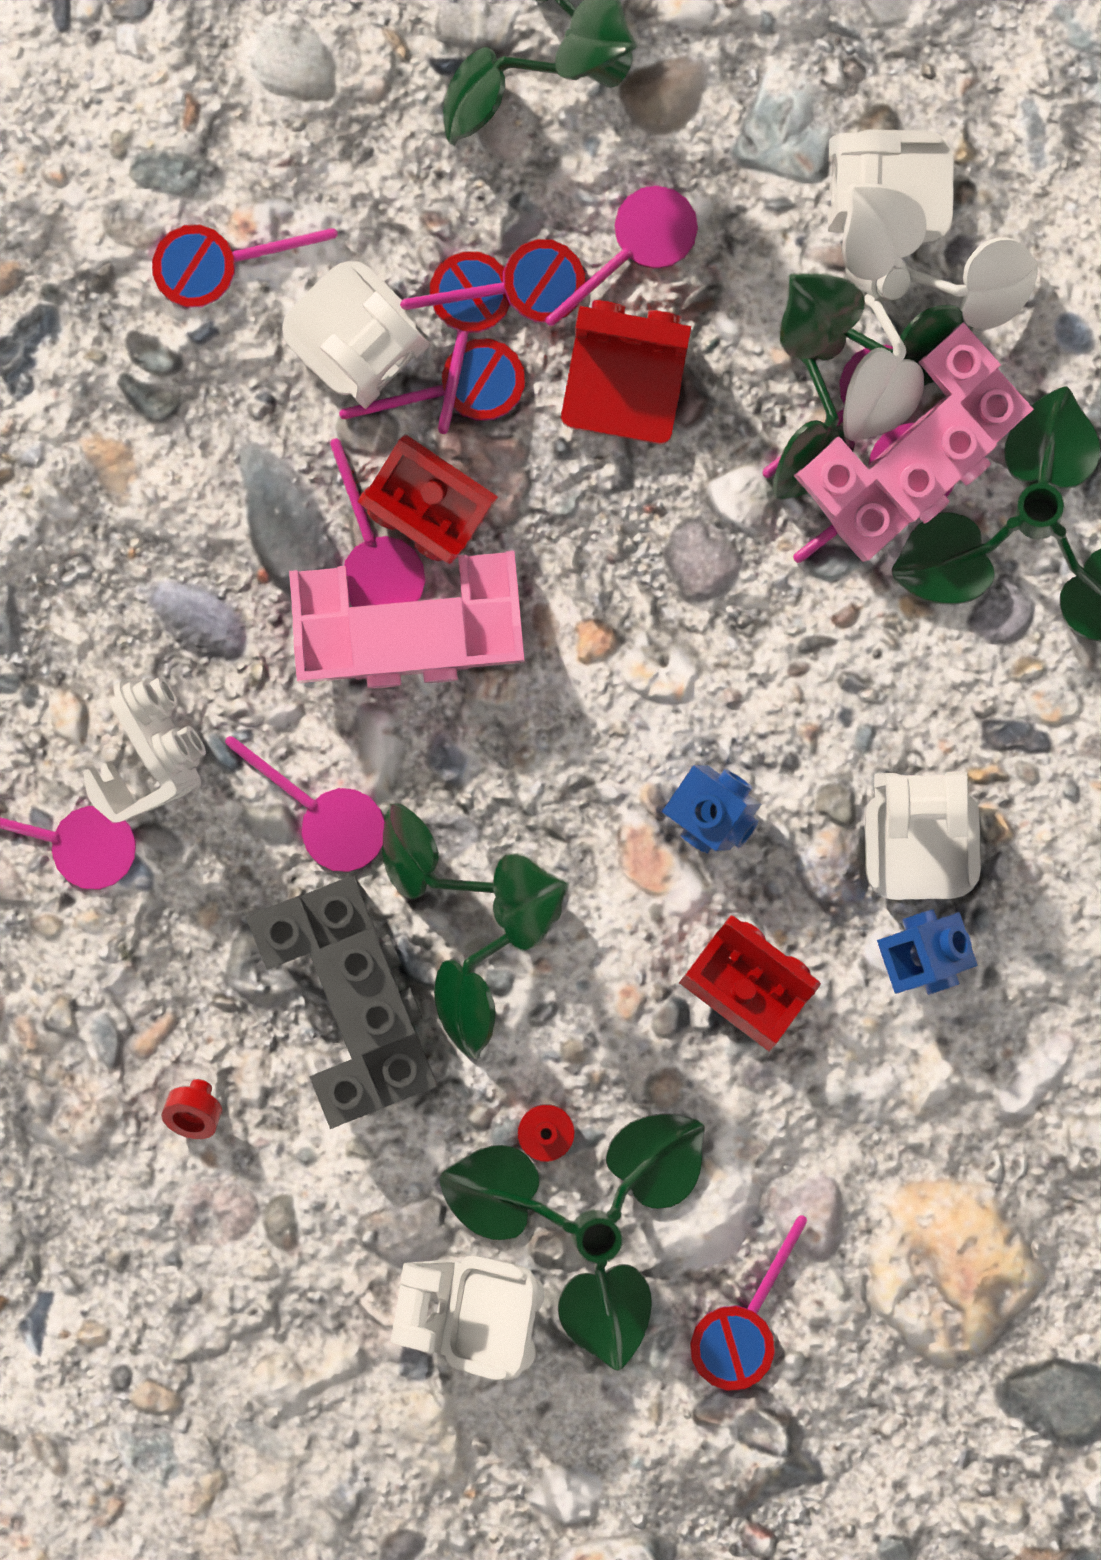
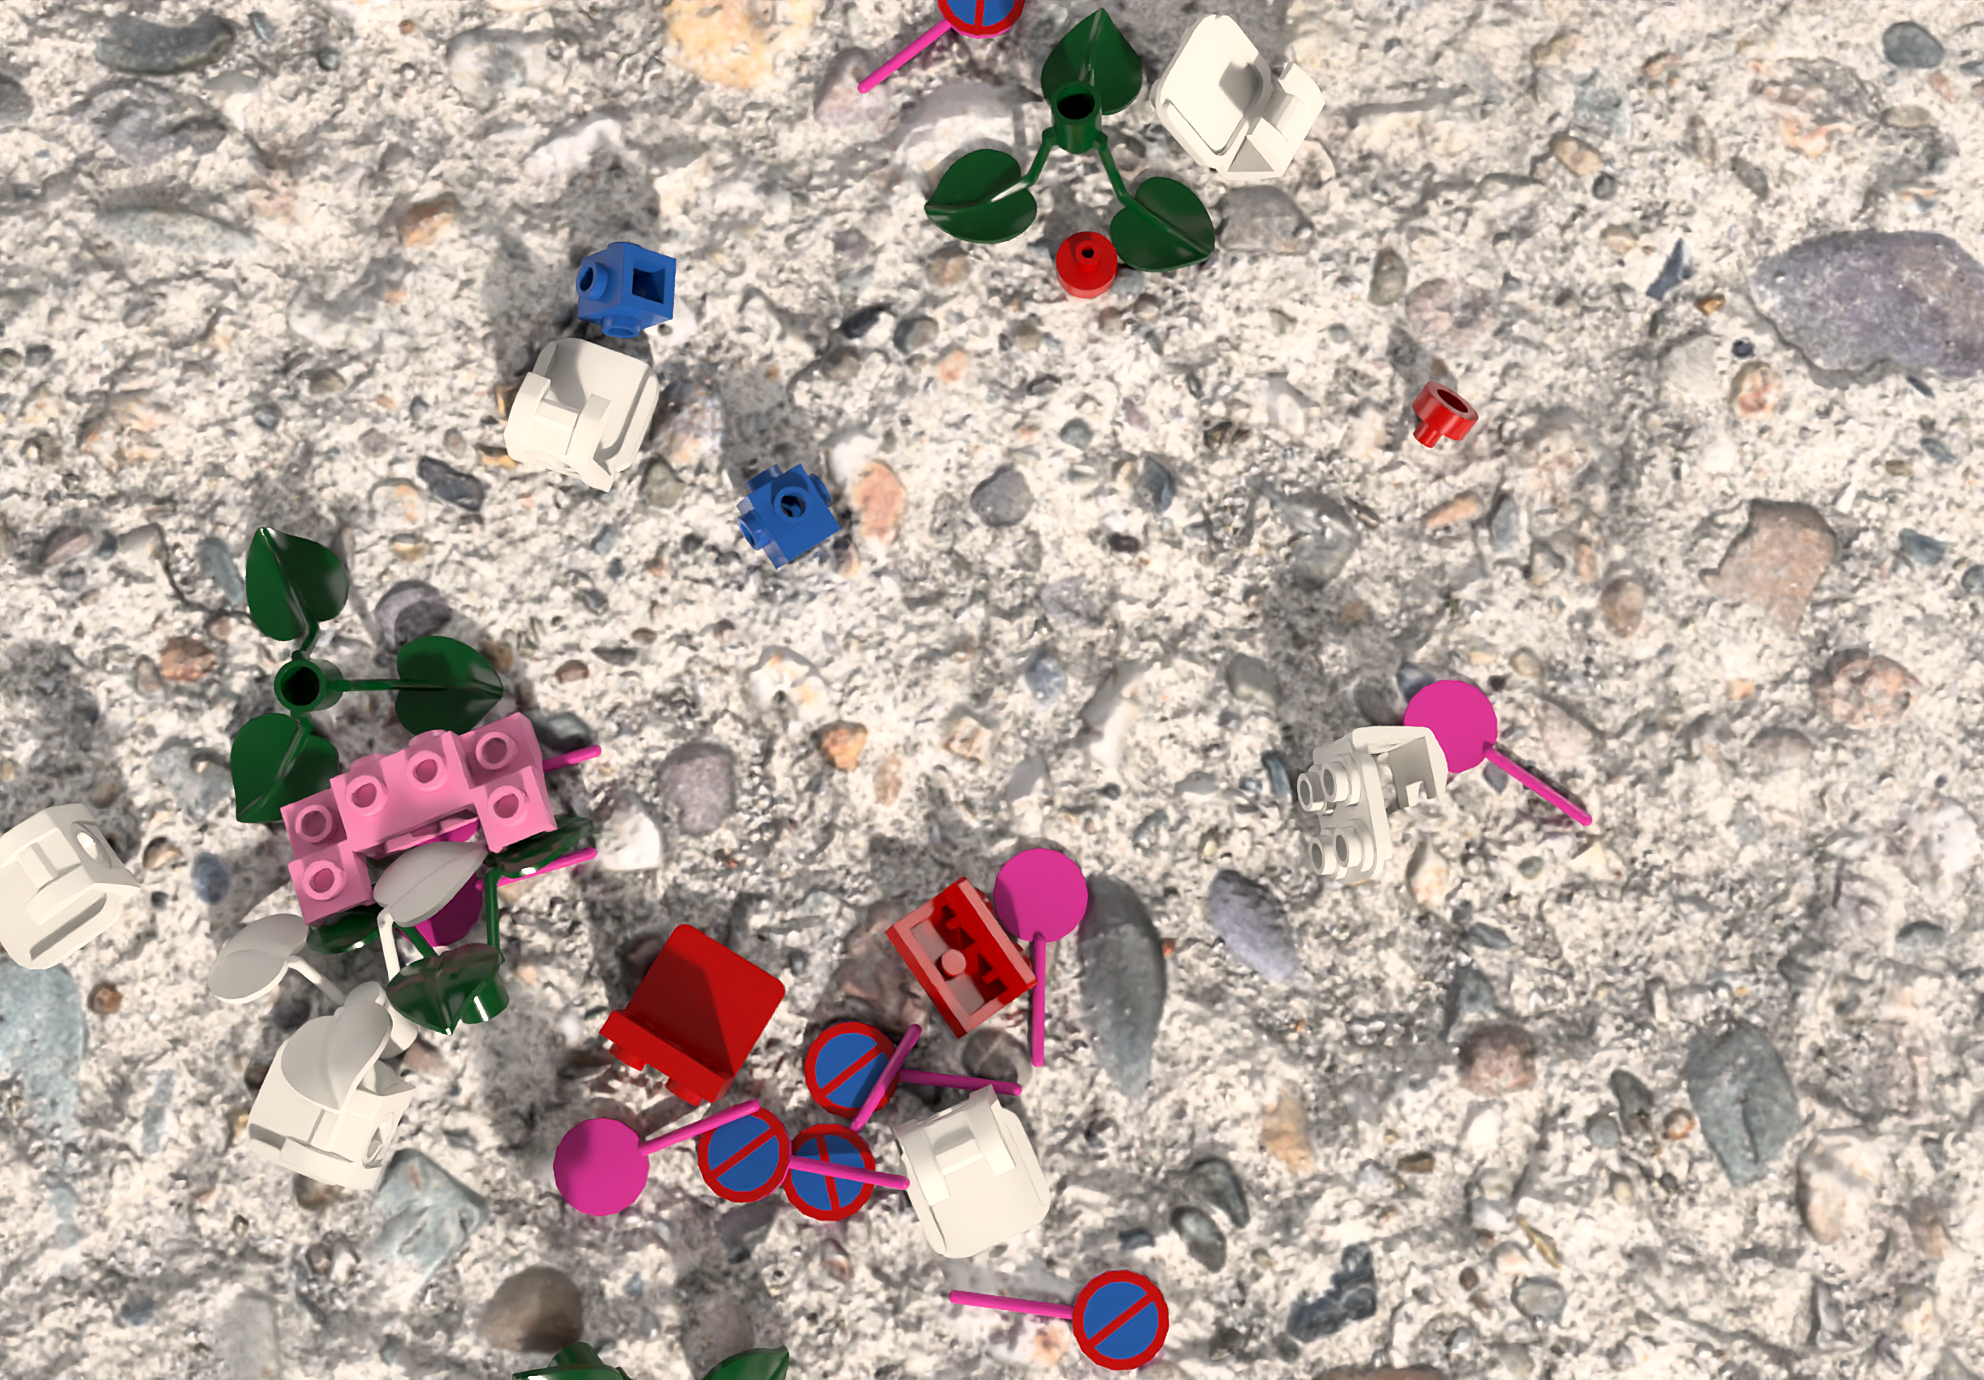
camera: 160 degrees left, 5 degrees down
(338, 828) = (1182, 651): dark pink piece -> none
(362, 993) = (1223, 466): dark grey bracket -> none
(407, 636) = (1039, 814): bright pink bracket -> none
(523, 905) = (1020, 484): dark green plant -> none
(750, 982) = (820, 330): red bracket -> none

